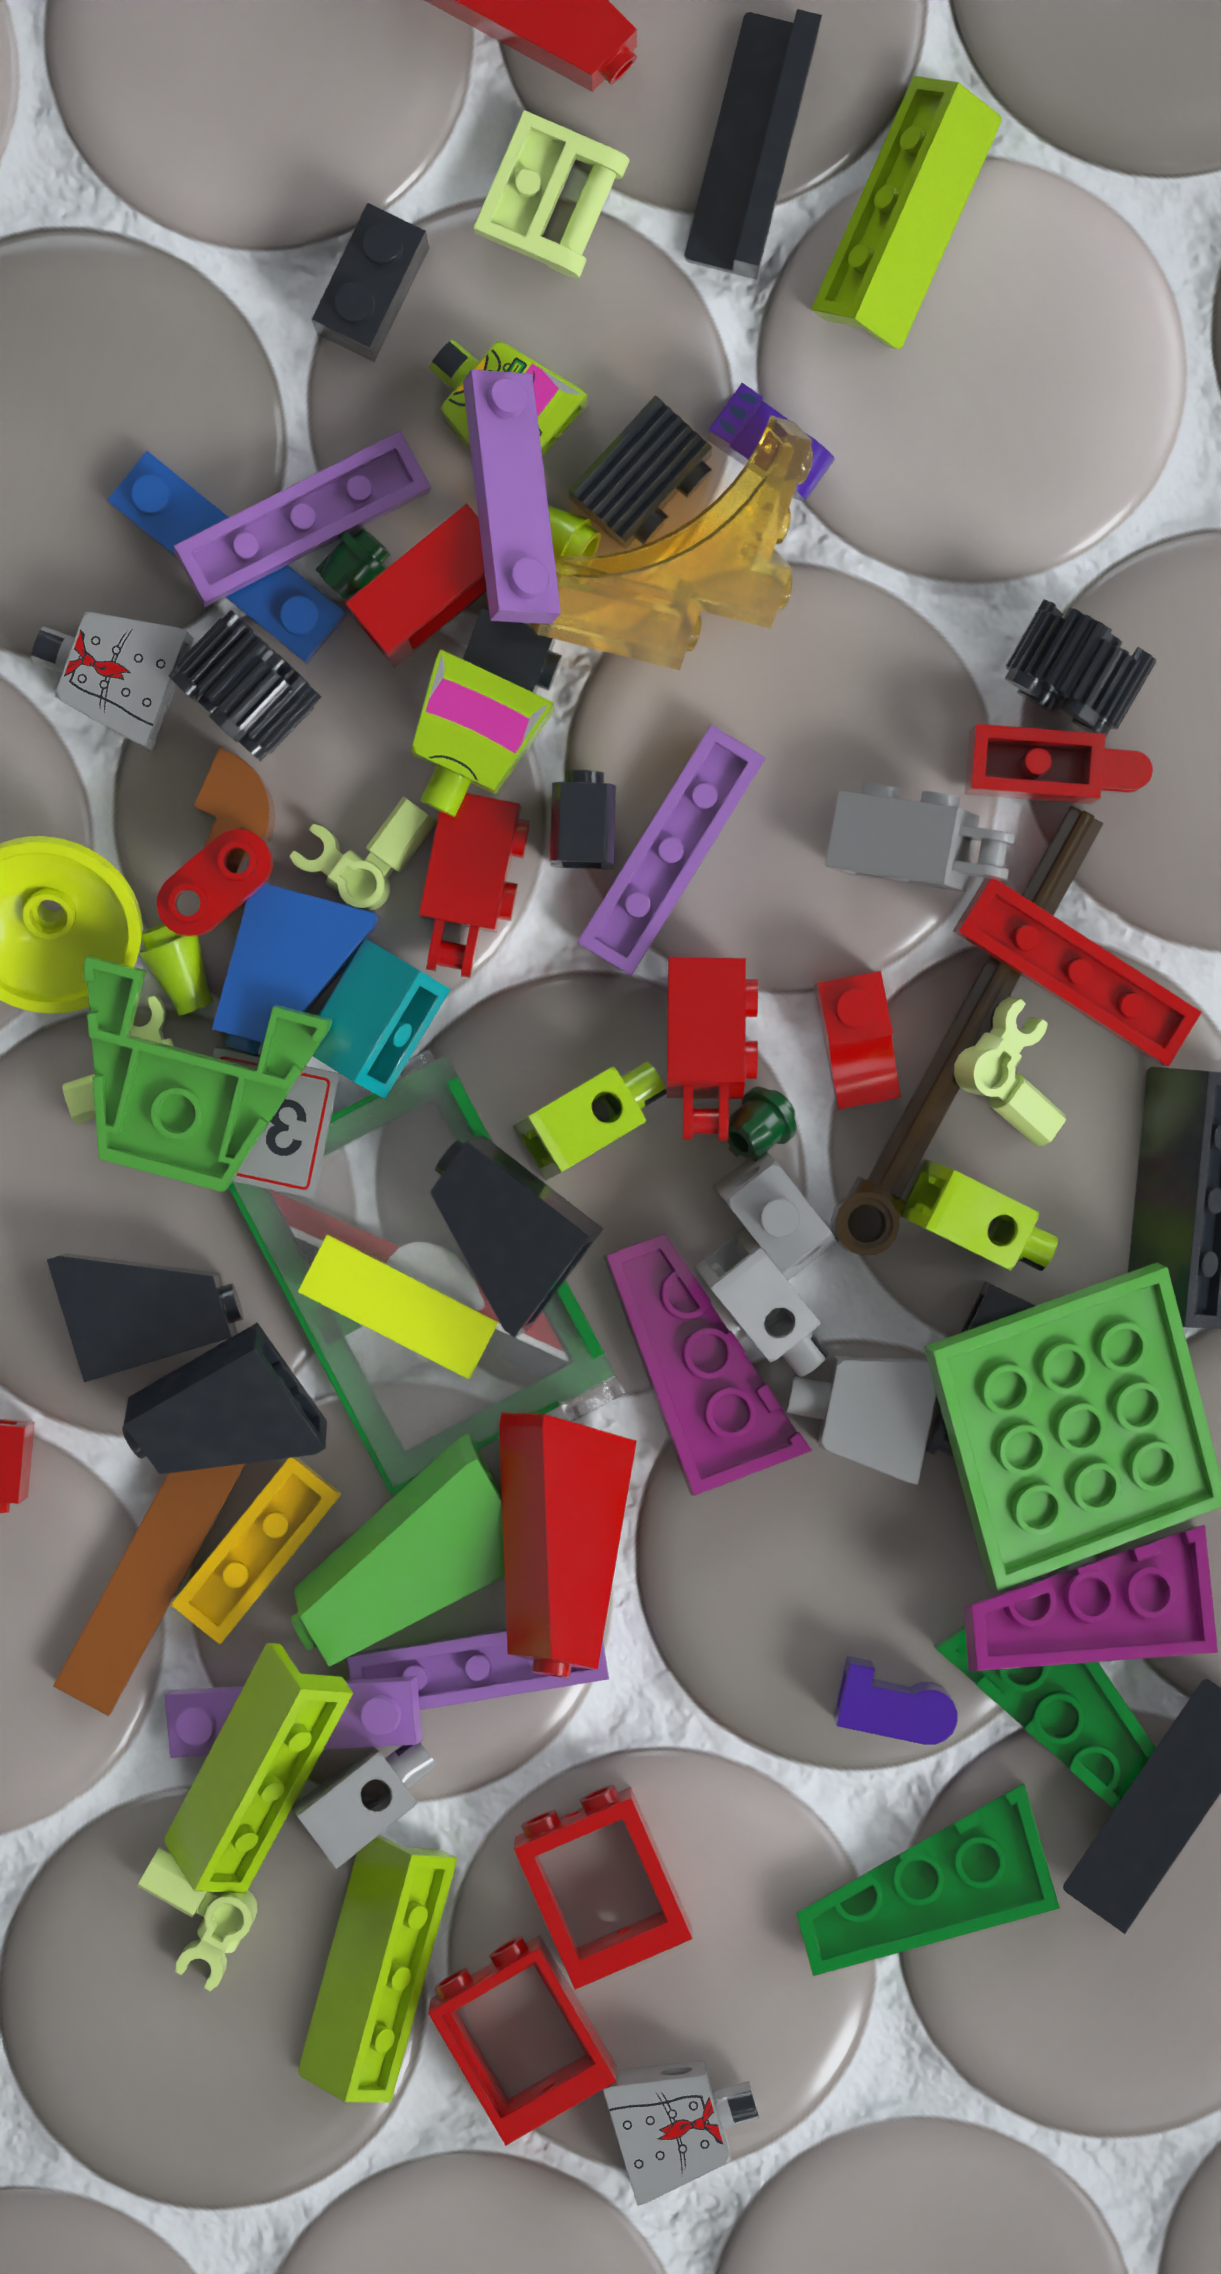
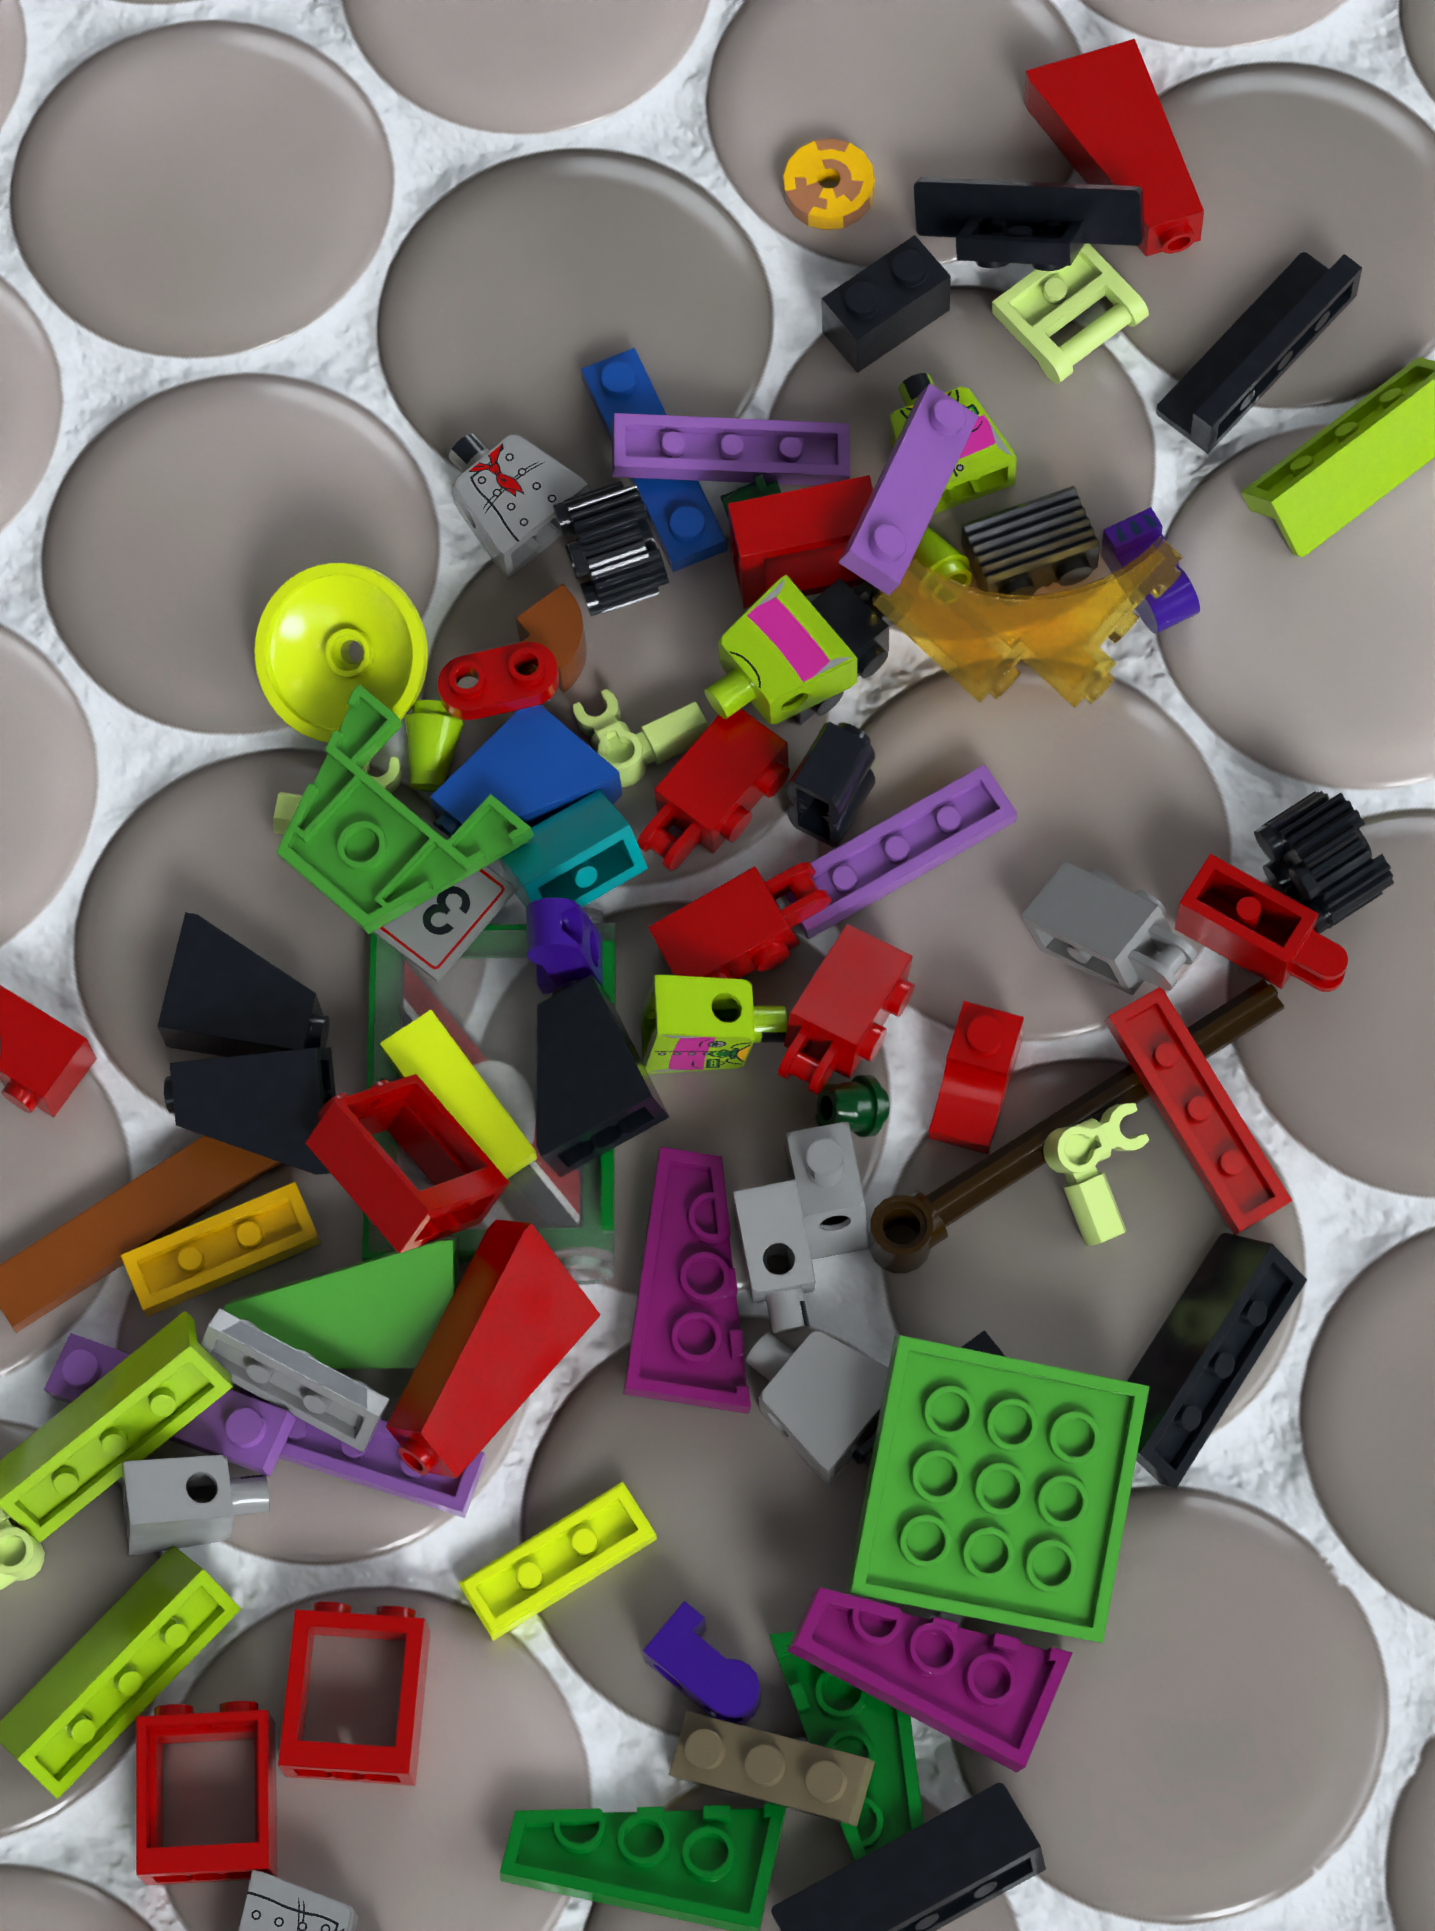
camera: 30 degrees right, 20 degrees down
(236, 141) = (833, 206): none -> yellow piece
(401, 1652) = (295, 1380): none -> light grey plate
(409, 1367) = (461, 1172): none -> red window
(422, 1119) = (562, 943): none -> dark purple leg
(466, 129) = (1027, 220): none -> black bracket
(565, 1012) = (739, 924): none -> red brick
(711, 1671) = (557, 1561): none -> neon yellow tile
(962, 1211) = (997, 1247): lime torso -> none
(999, 1765) = (771, 1768): none -> dark tan plate

